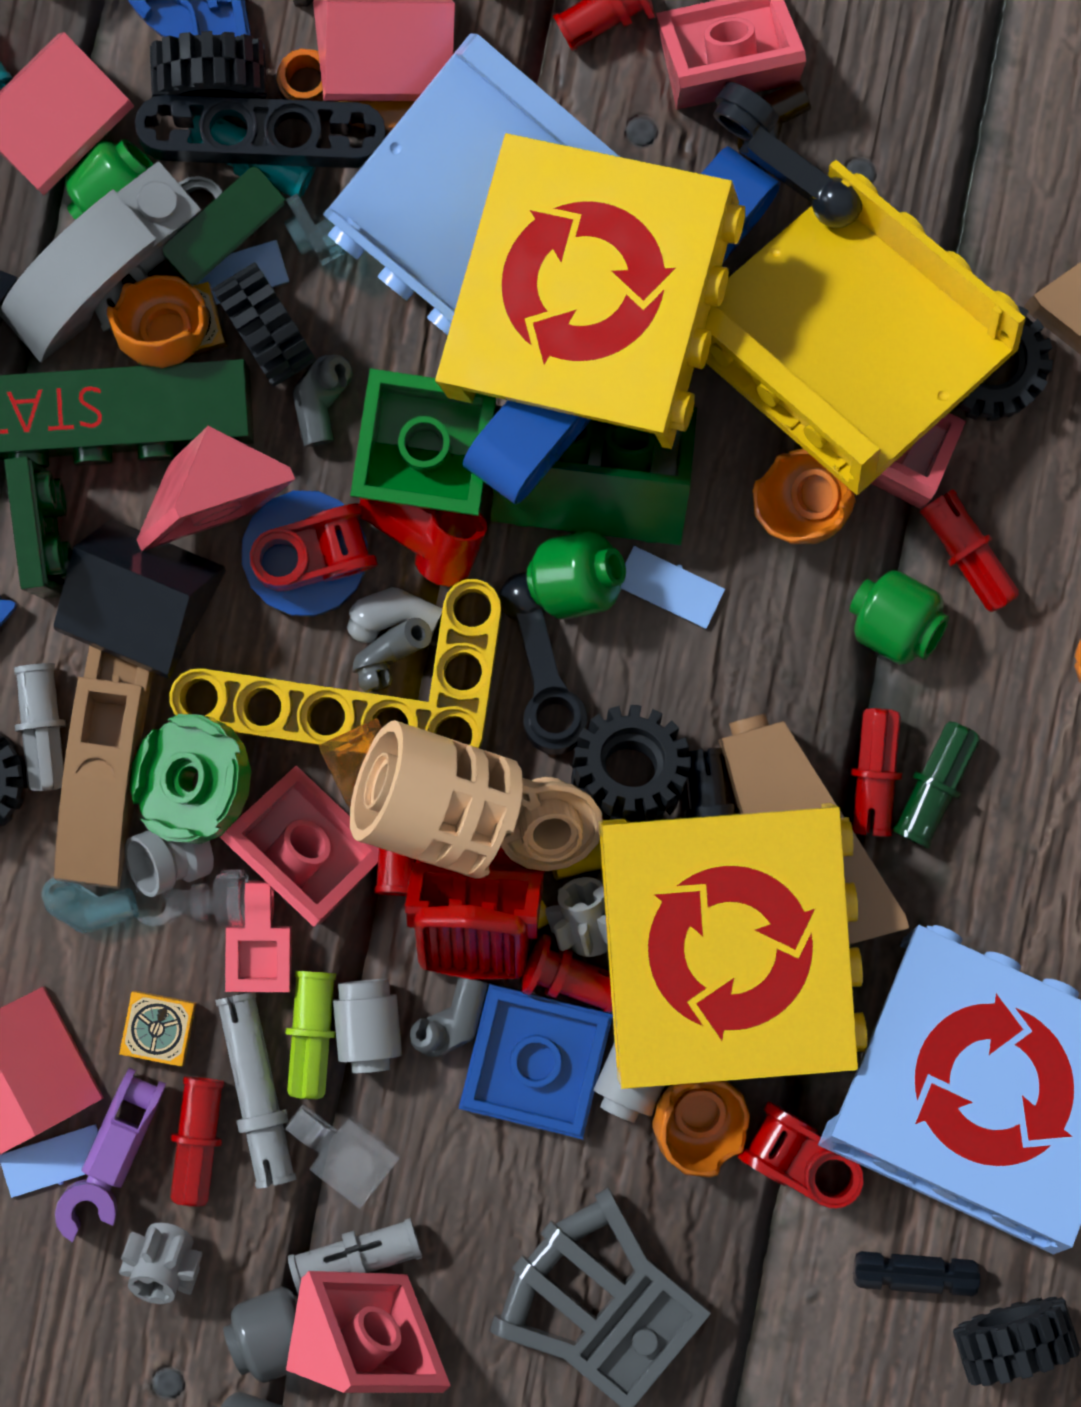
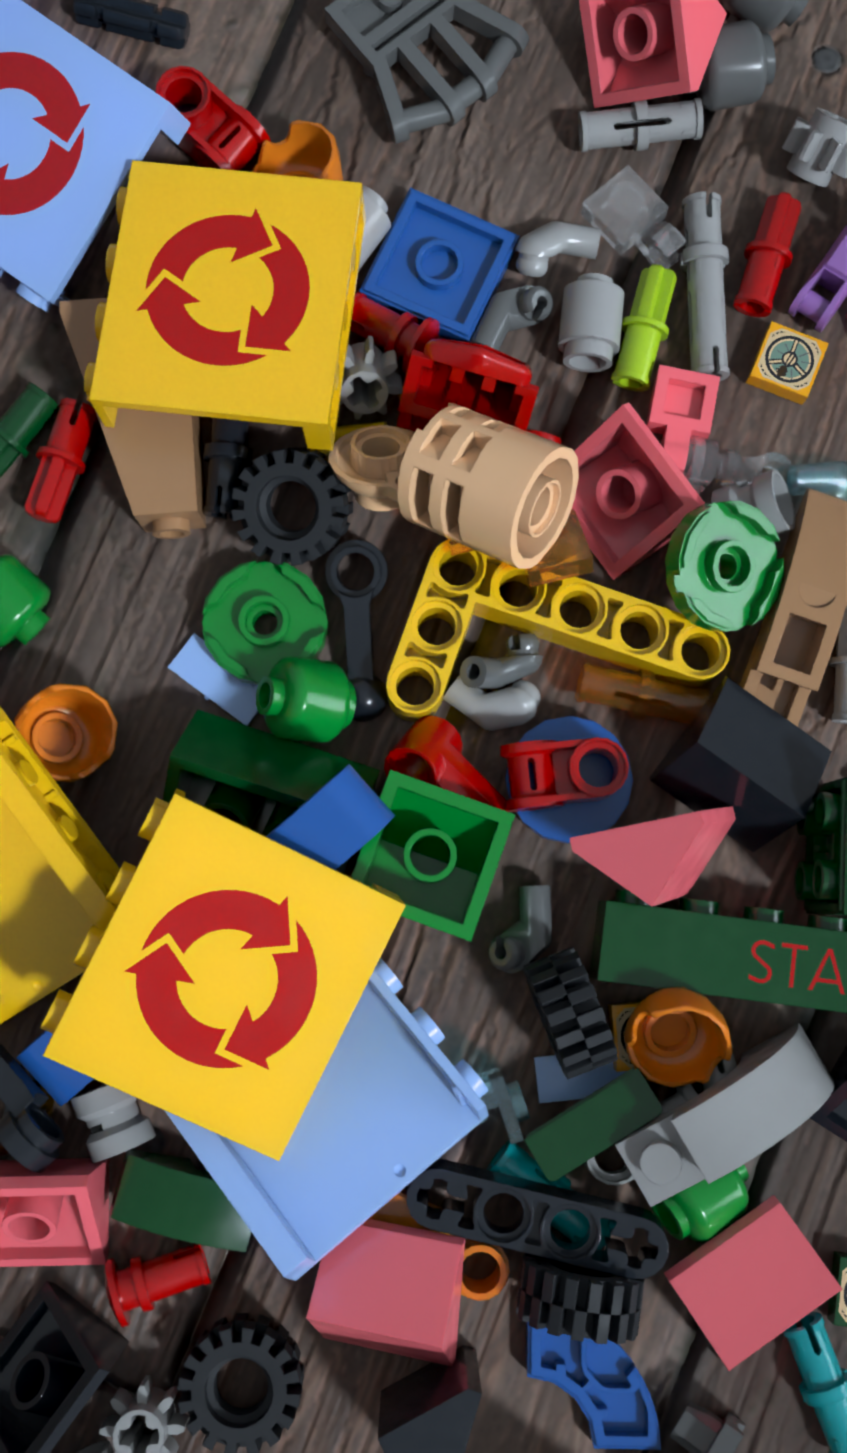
camera: 175 degrees left, 5 degrees down
(250, 650) = (639, 693): none -> clear orange pin
(425, 1110) = (555, 239): none -> light grey arm
(598, 82) = (176, 1201): none -> dark green slope
(670, 655) = (259, 591): none -> green plate
(675, 141) = (113, 1121): none -> light grey wheel

